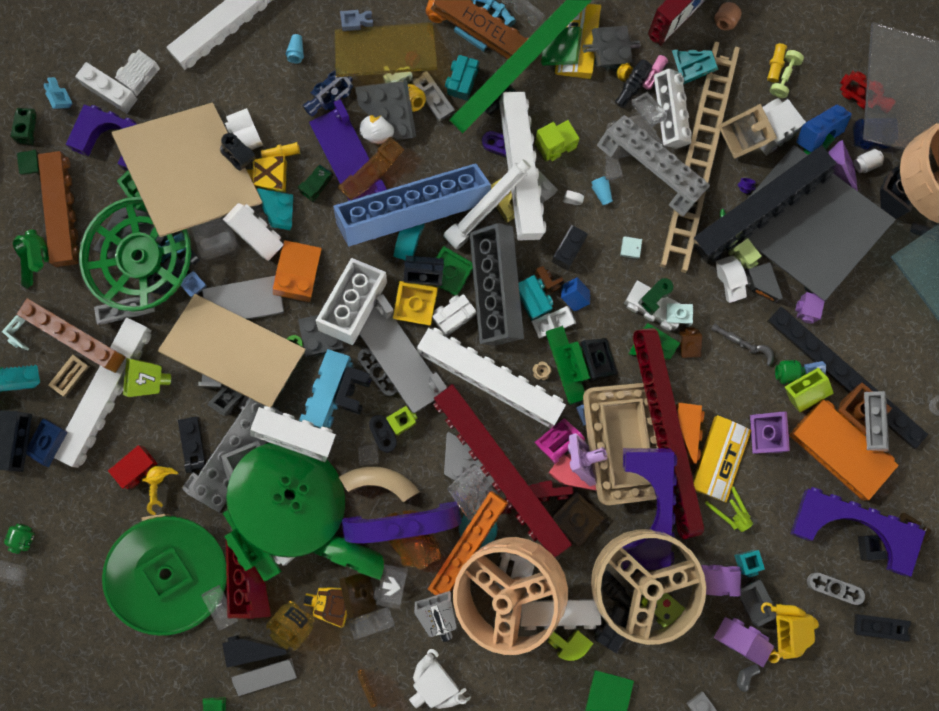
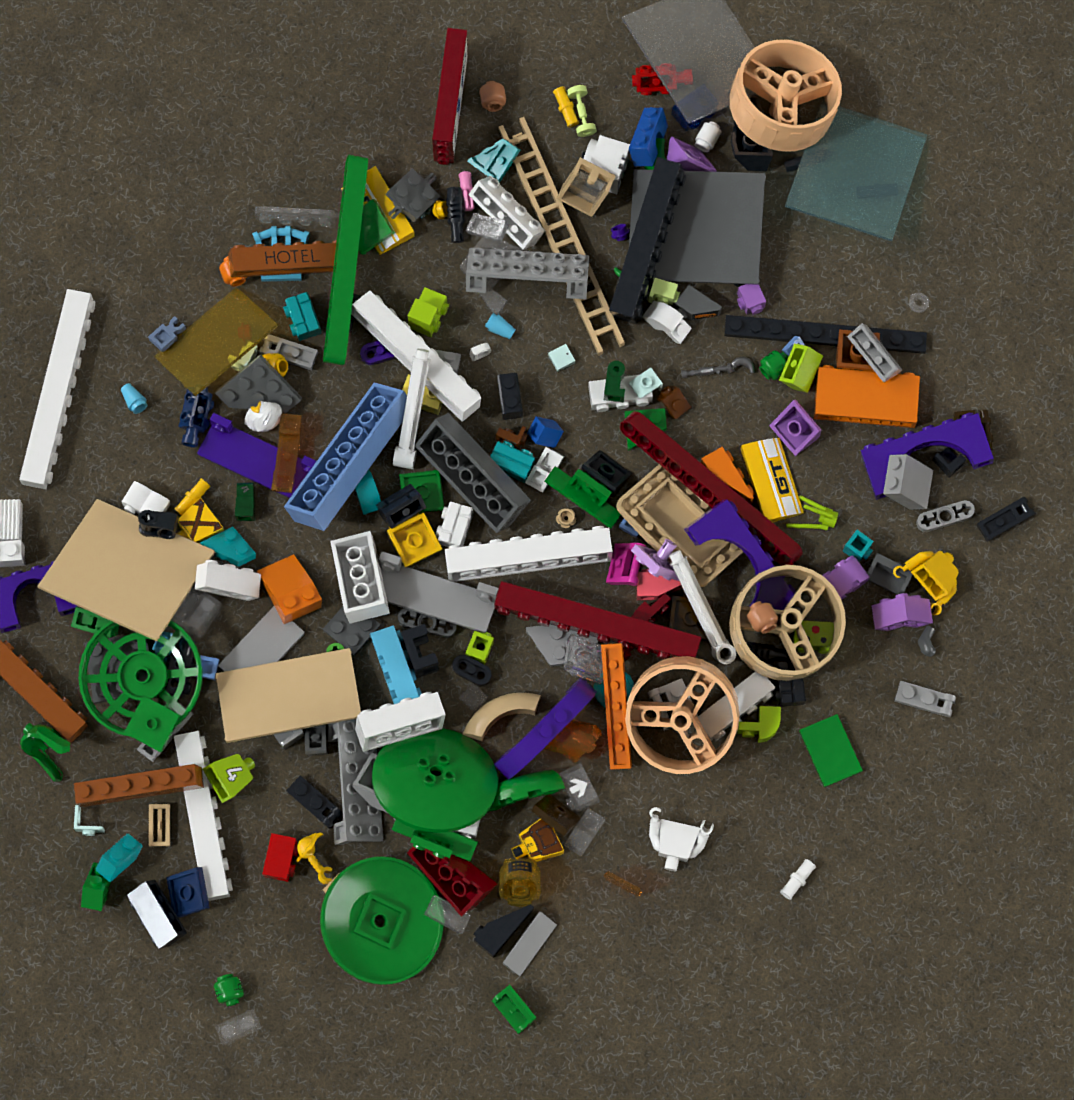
camera: 35 degrees left, 5 degrees down
(113, 297) = (152, 724): none -> green plate
(437, 615) = (636, 781): light grey torso -> none
(590, 521) = (702, 608): none -> white piece
(630, 570) = (762, 617): none -> nougat head
(827, 542) = (908, 482): none -> light grey brick

